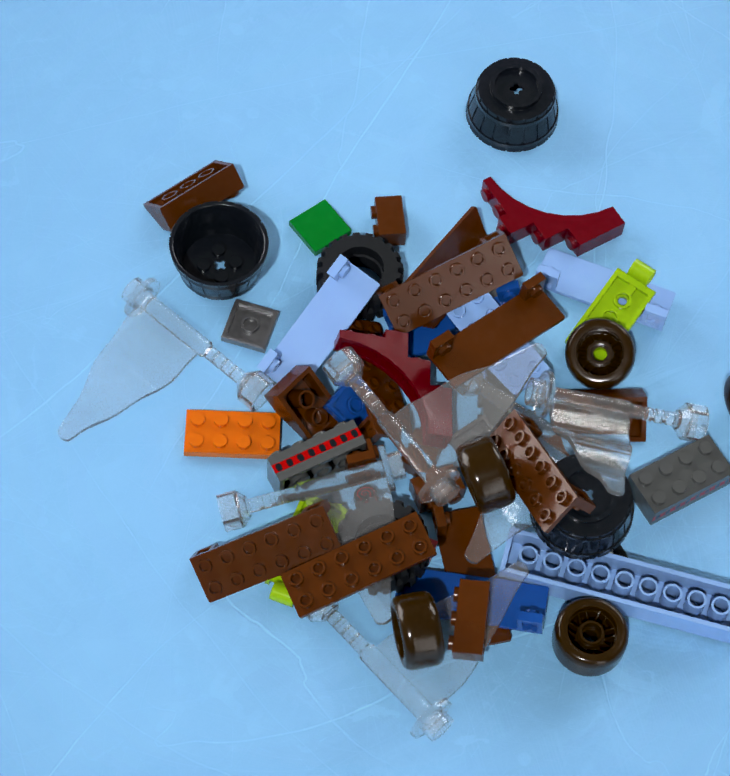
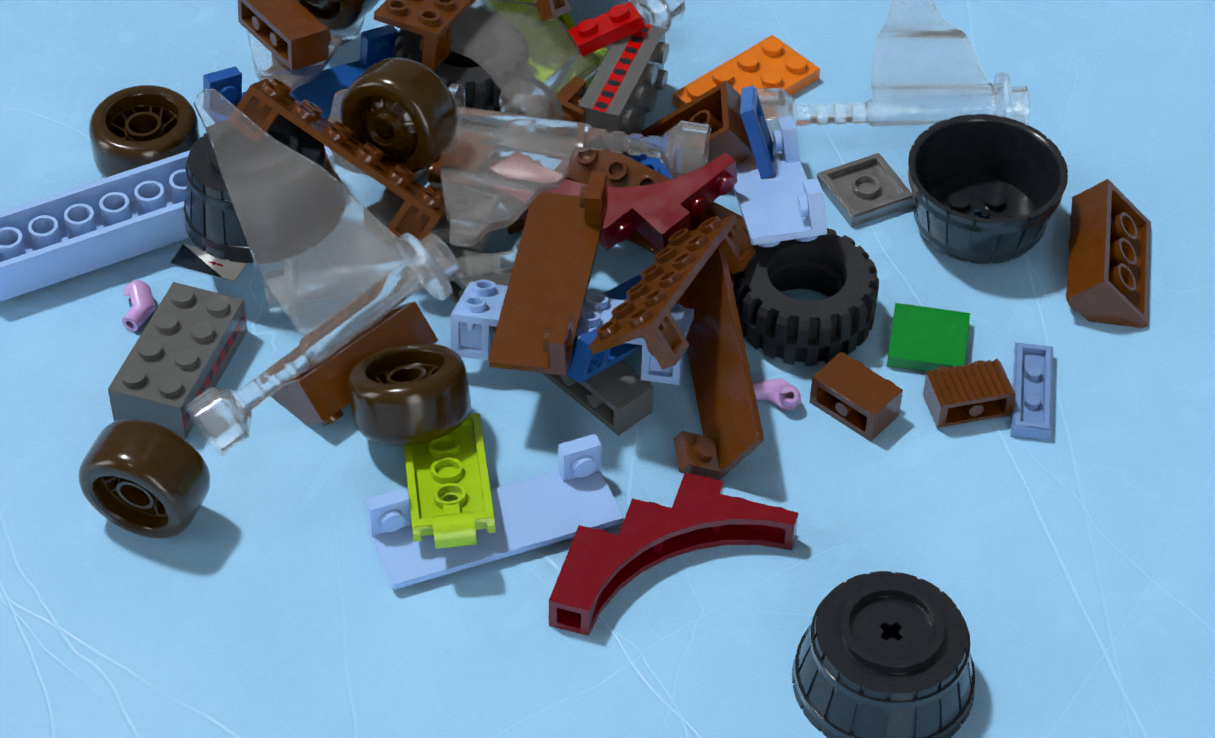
camera: 140 degrees right, 15 degrees down
(289, 363) = (757, 131): none -> blue tile
(299, 479) = (606, 28): none -> red plate
(305, 171) = (1033, 391): none -> medium blue tile
(340, 184) = (968, 393): none -> reddish brown brick
(416, 251) = (778, 392): none -> lavender arm
(667, 537) = (142, 302): none -> lavender arm

